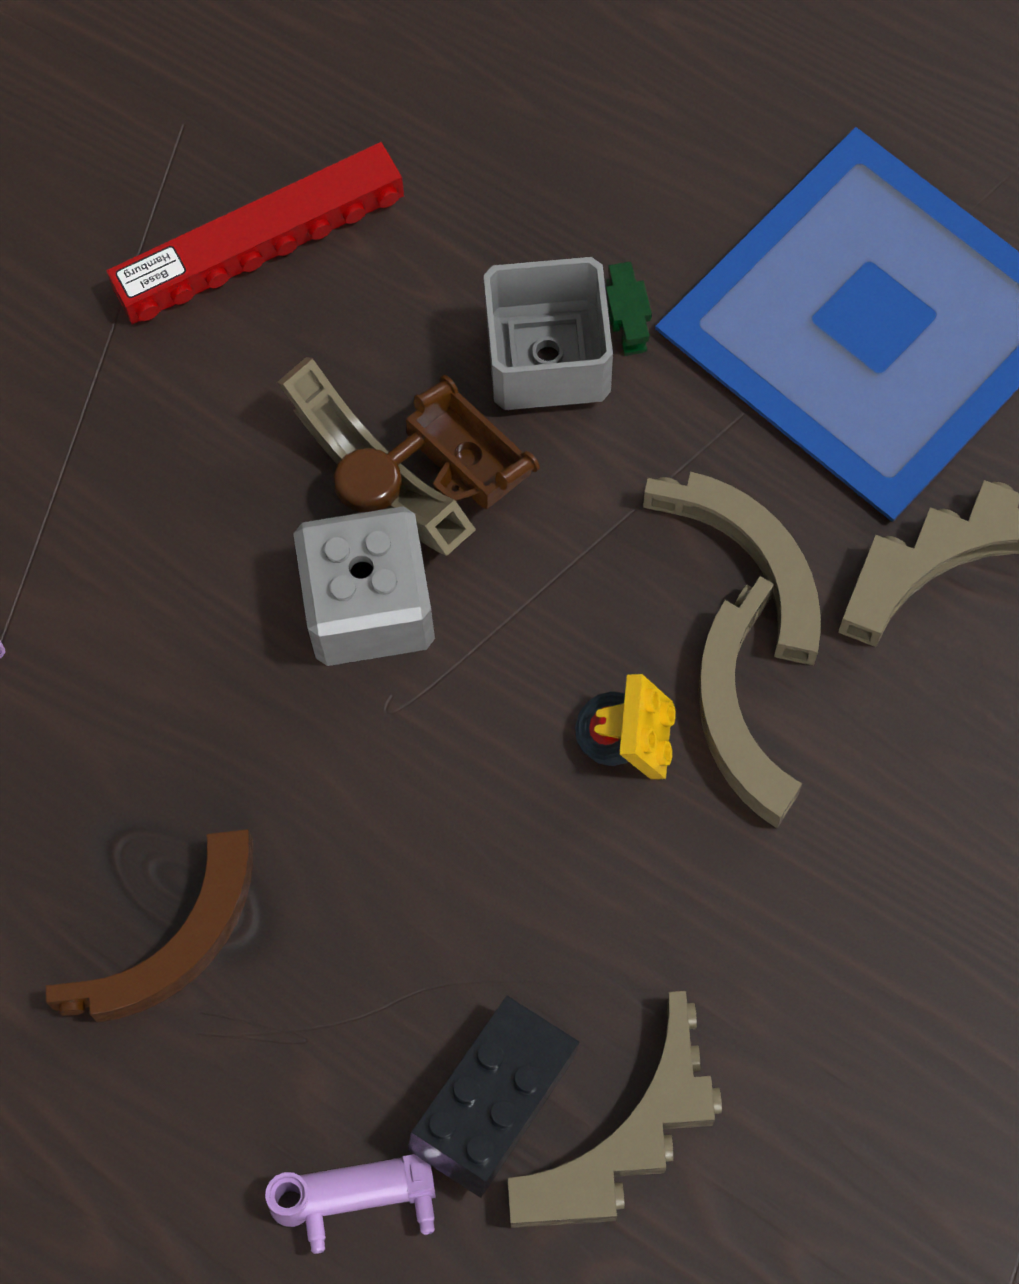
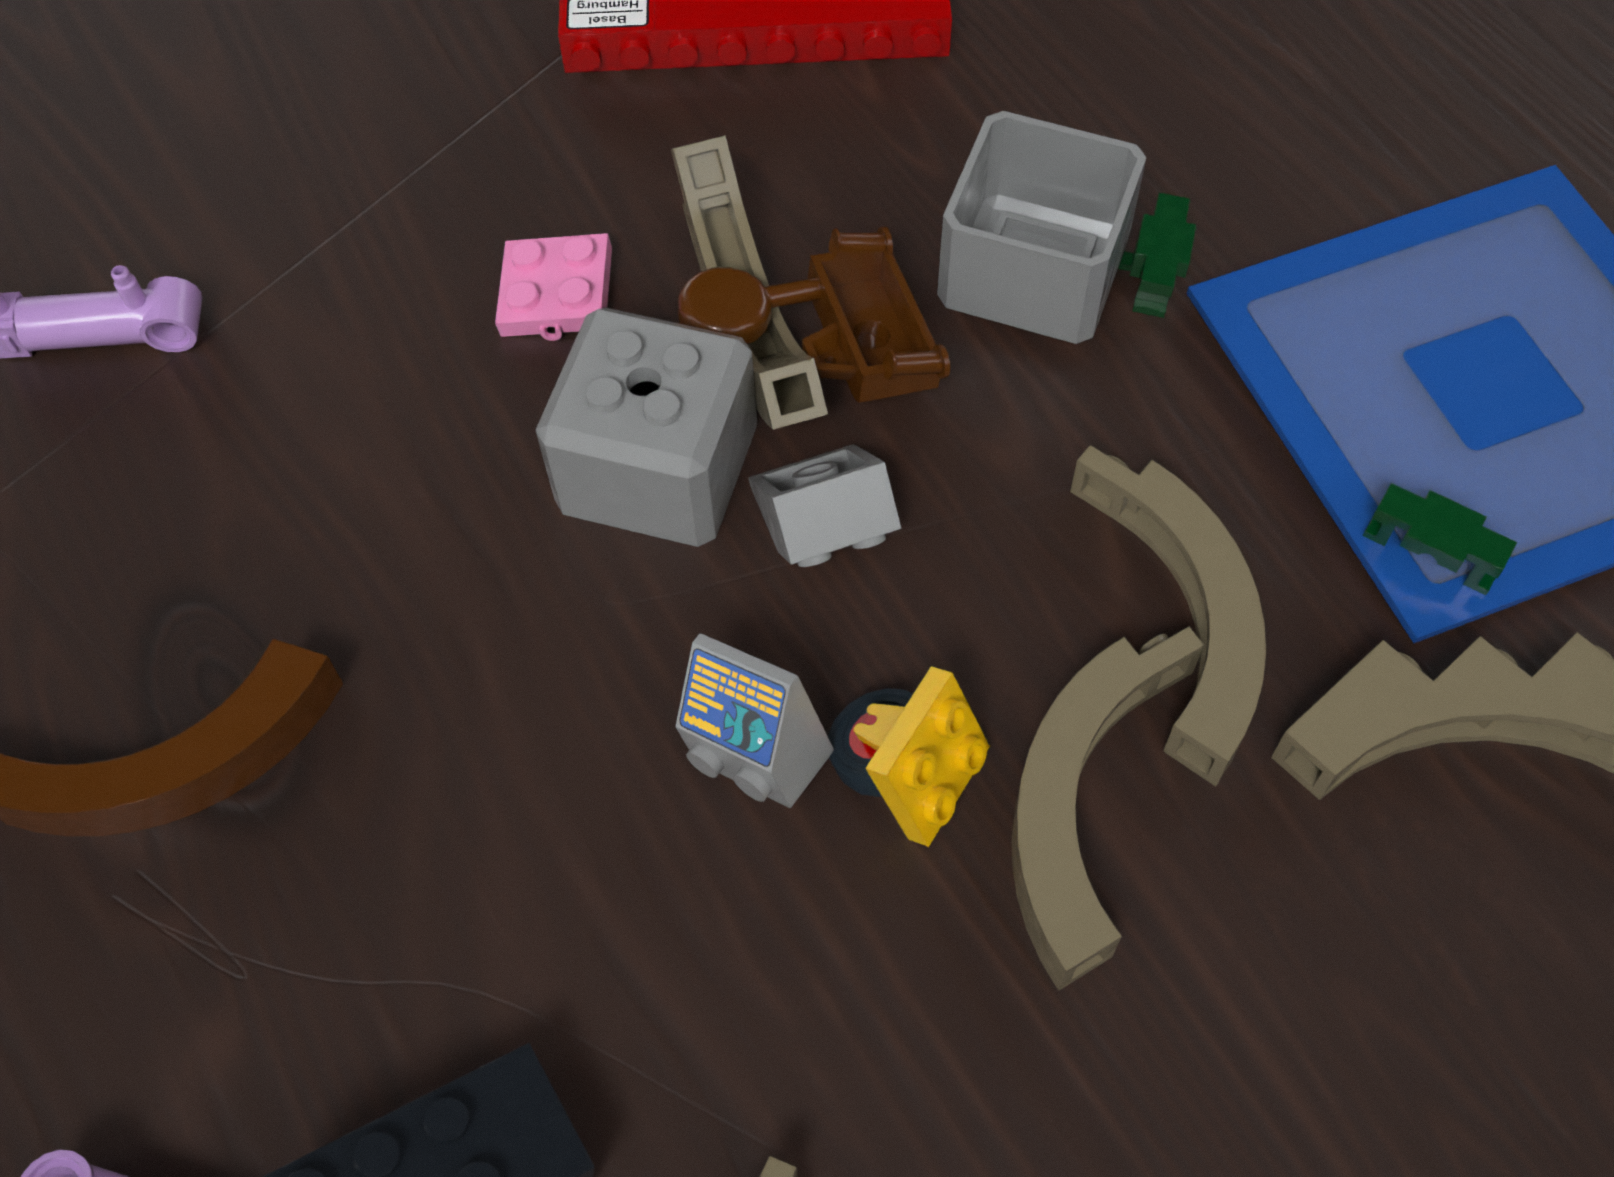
camera: 25 degrees right, 10 degrees down
(229, 503) = (552, 284): none -> bright pink plate
(496, 586) = (826, 504): none -> light grey slope
(531, 755) = (749, 723): none -> slope
(883, 447) = (1443, 531): none -> dark green piece

